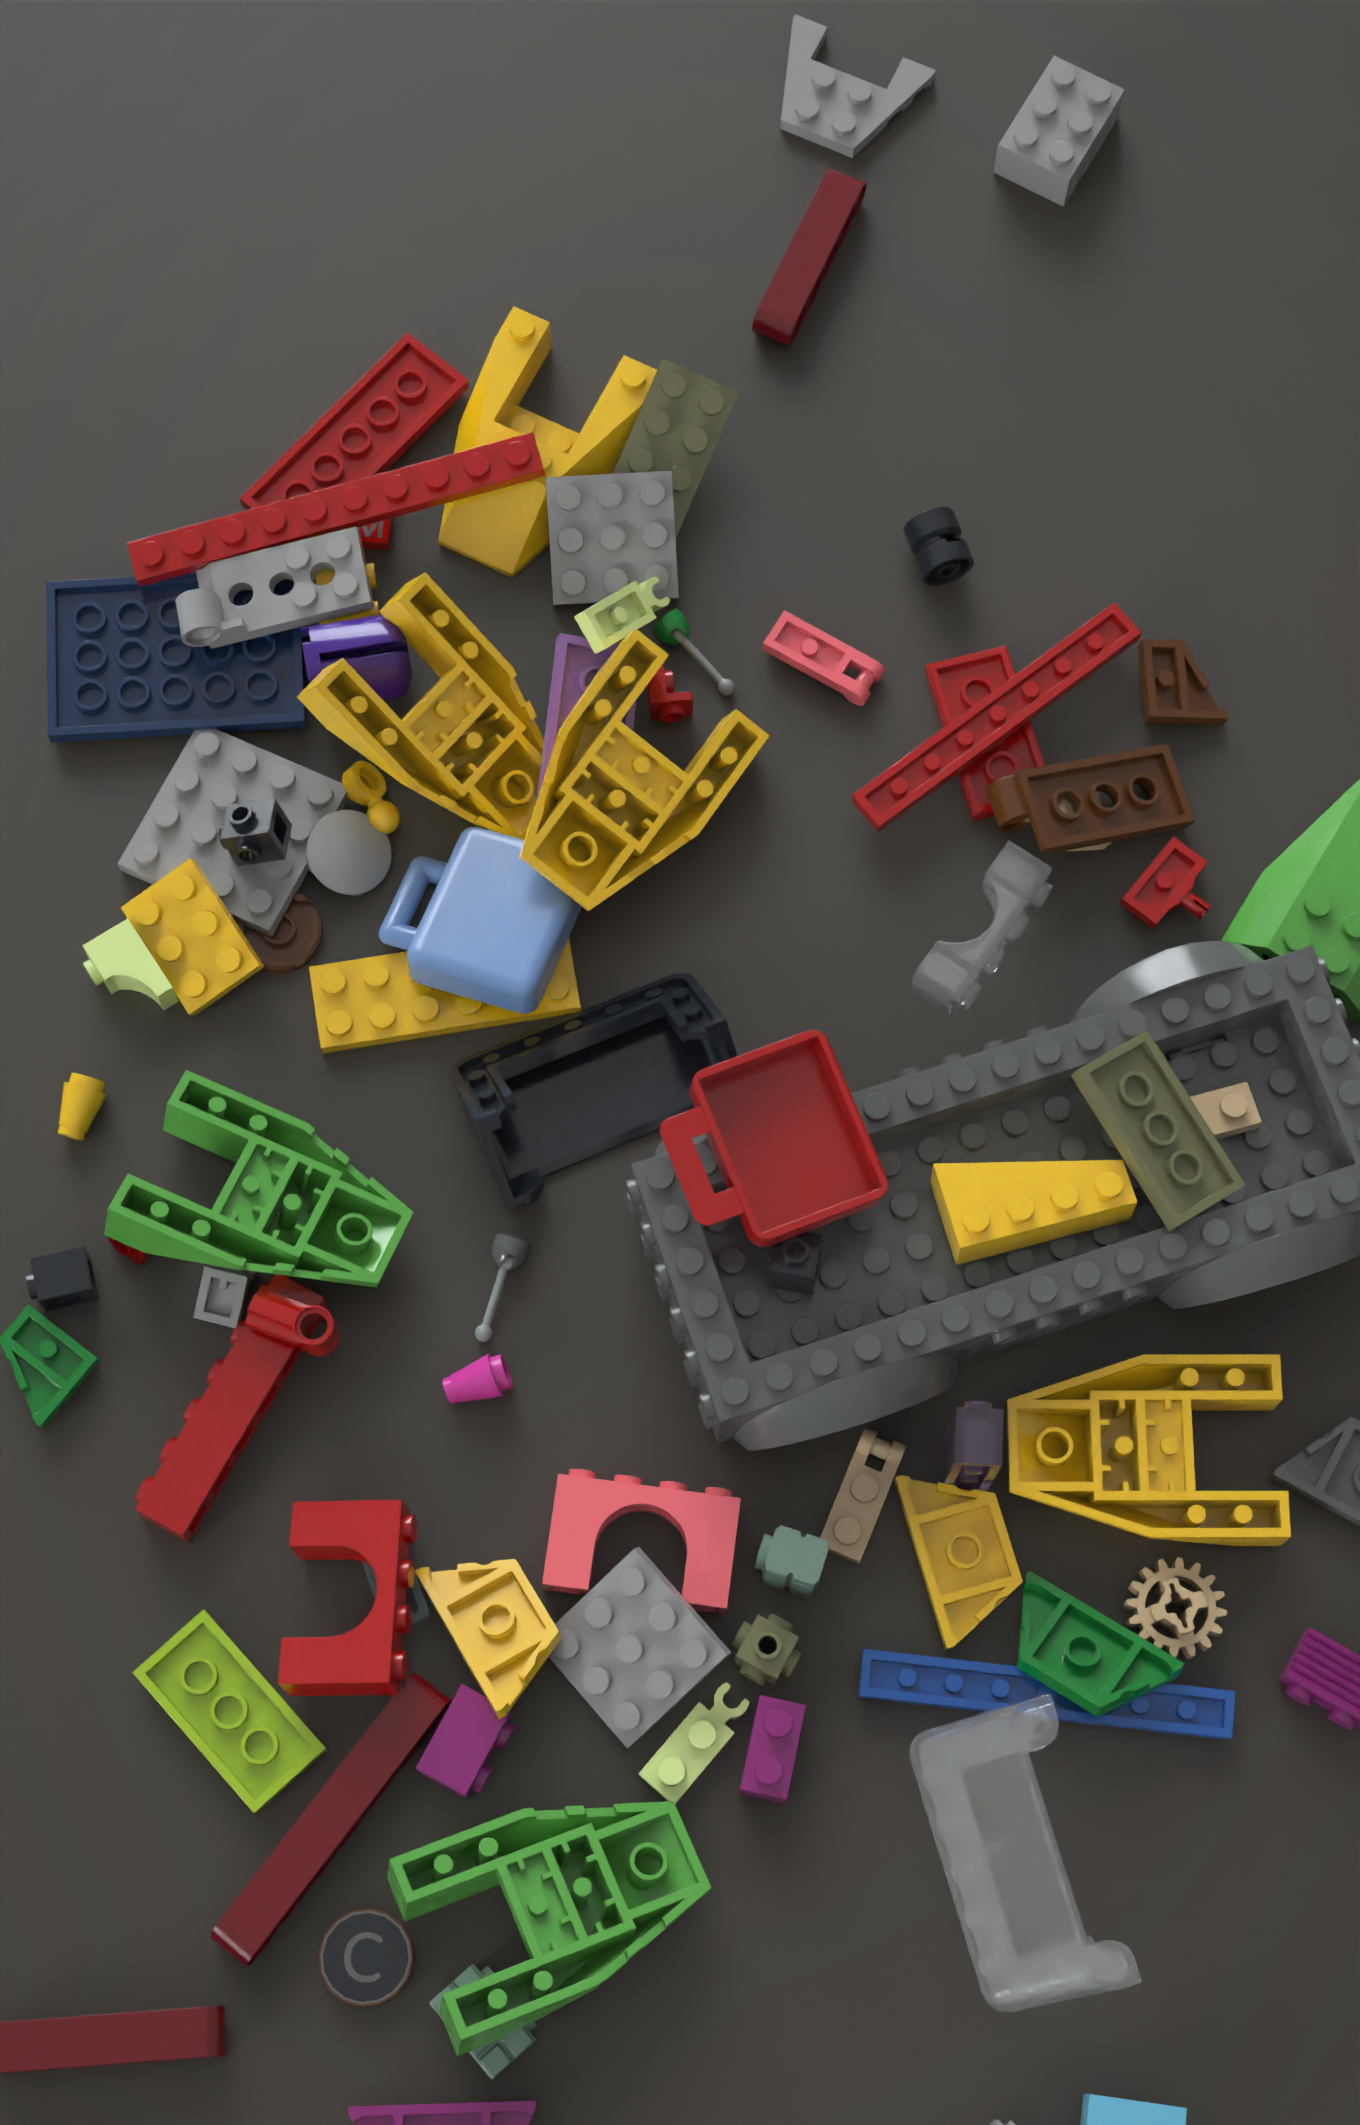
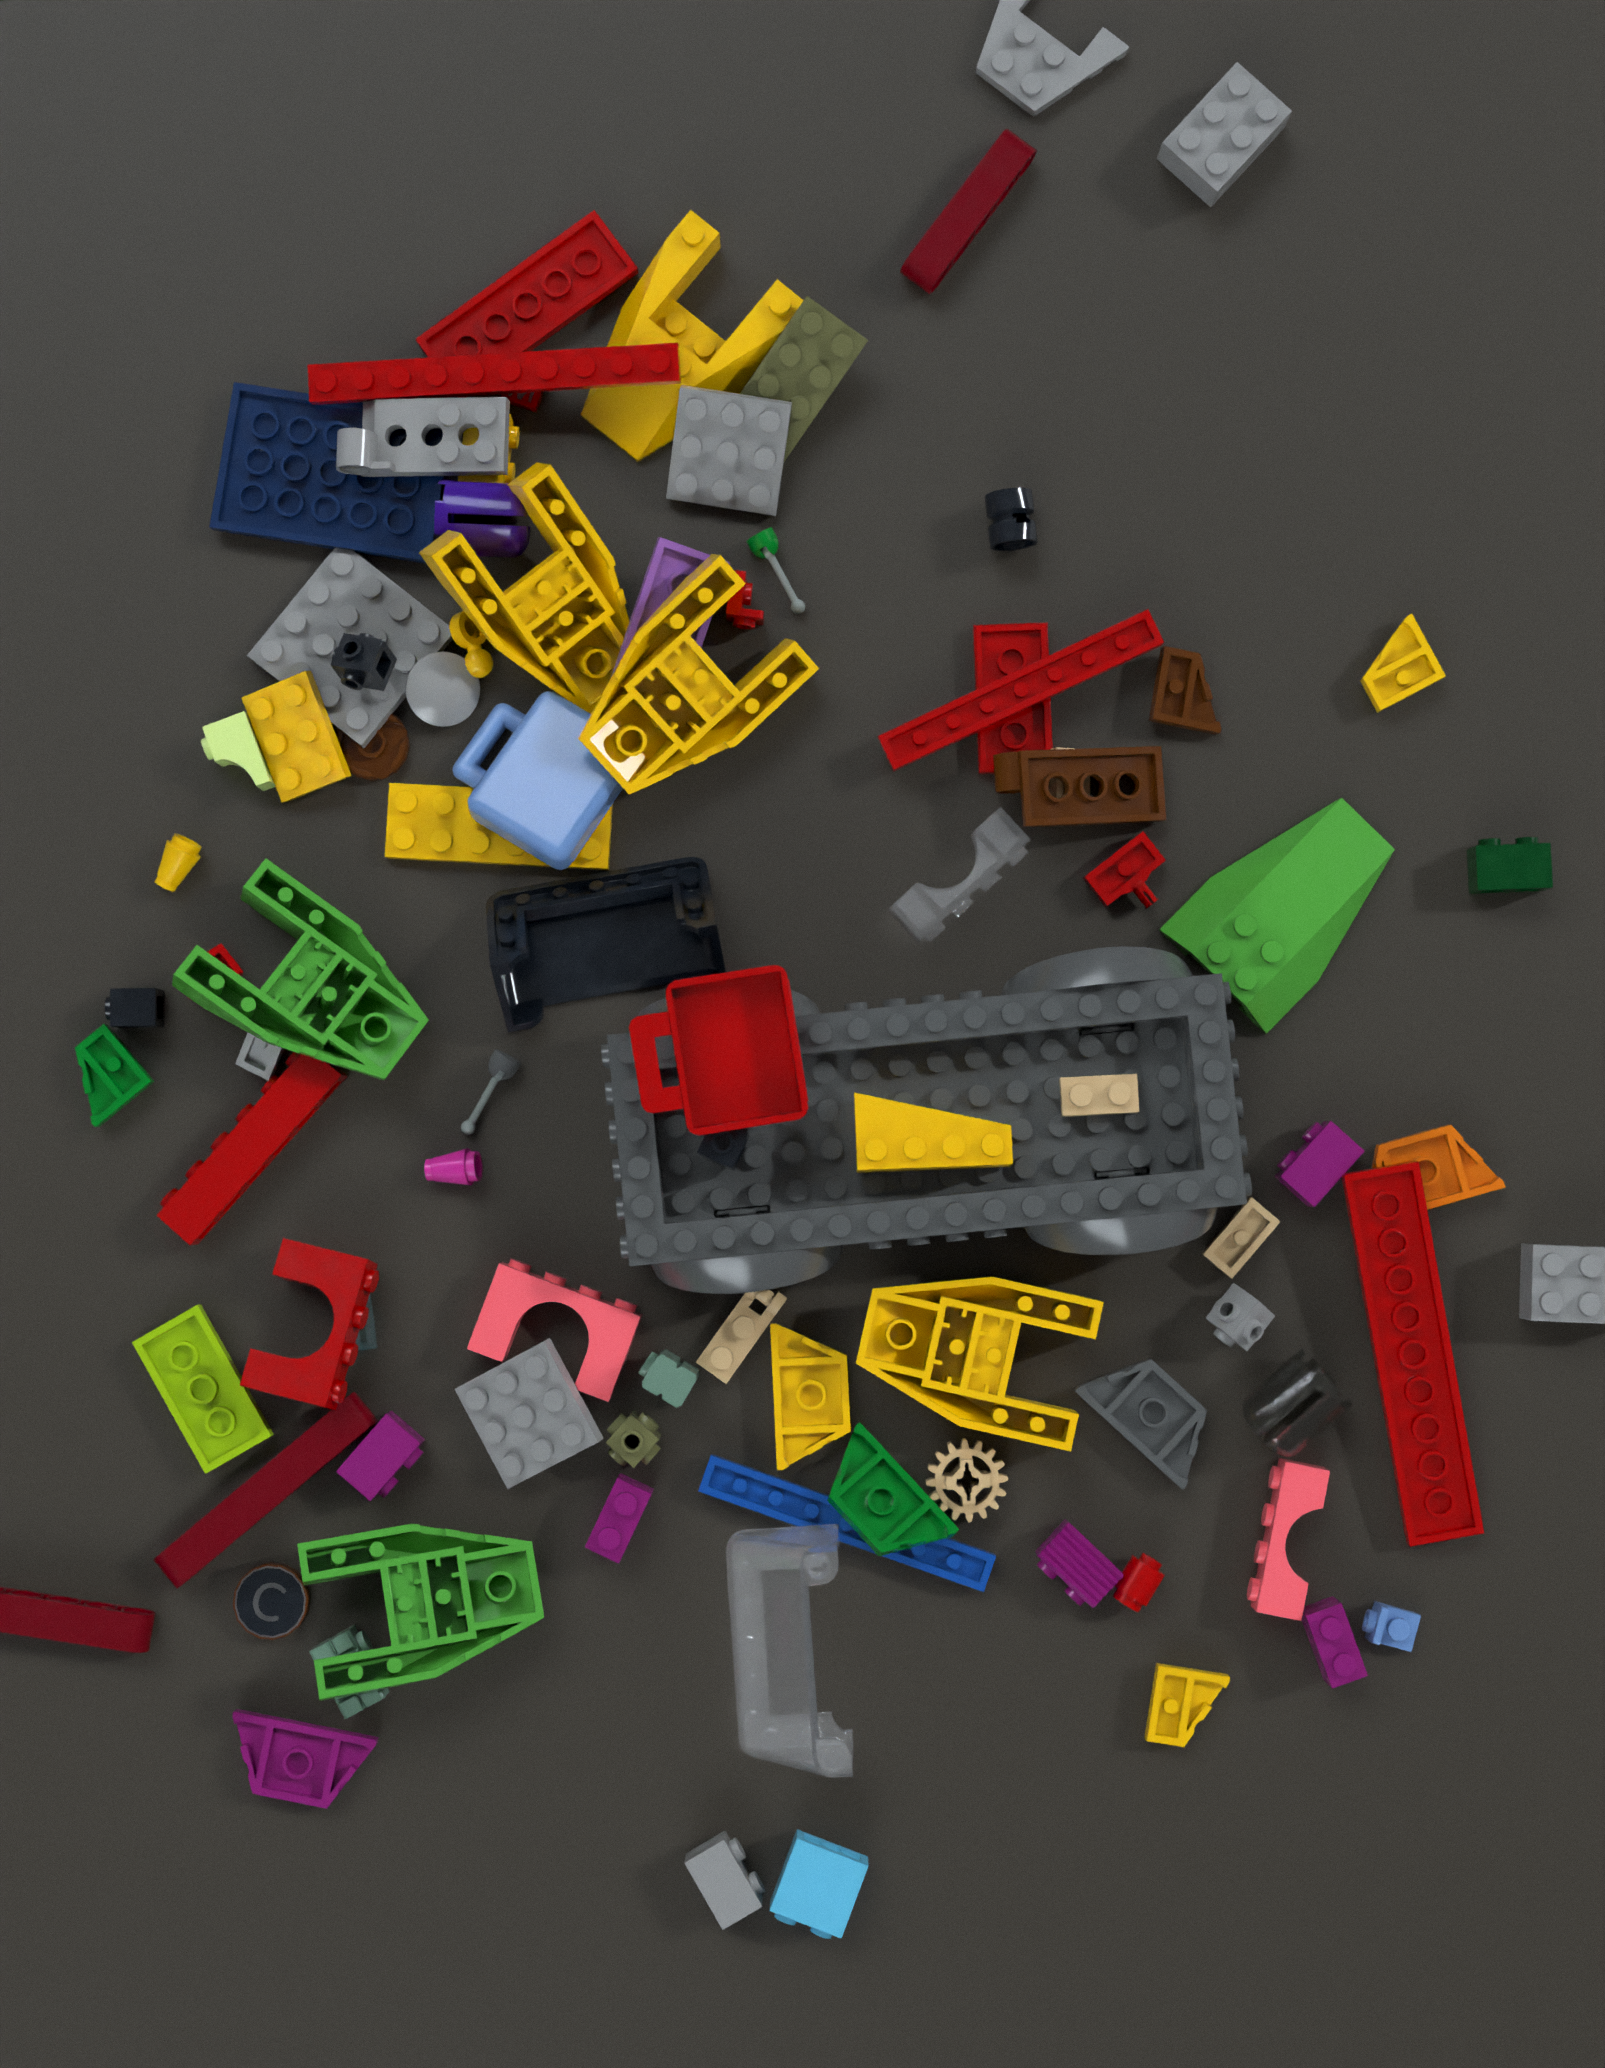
camera: 15 degrees right, 15 degrees up
(290, 1320) = (308, 1093): red piece -> none
(494, 1625) = (422, 1371): yellow wing -> none
(620, 614) = (716, 529): yellowish green plate -> none
(691, 1747) = (558, 1498): yellowish green plate -> none
(823, 657) = (886, 598): coral plate -> none
(973, 1446) = (833, 1322): clear purple brick -> none
(1158, 1130) = (1046, 1107): olive plate -> none

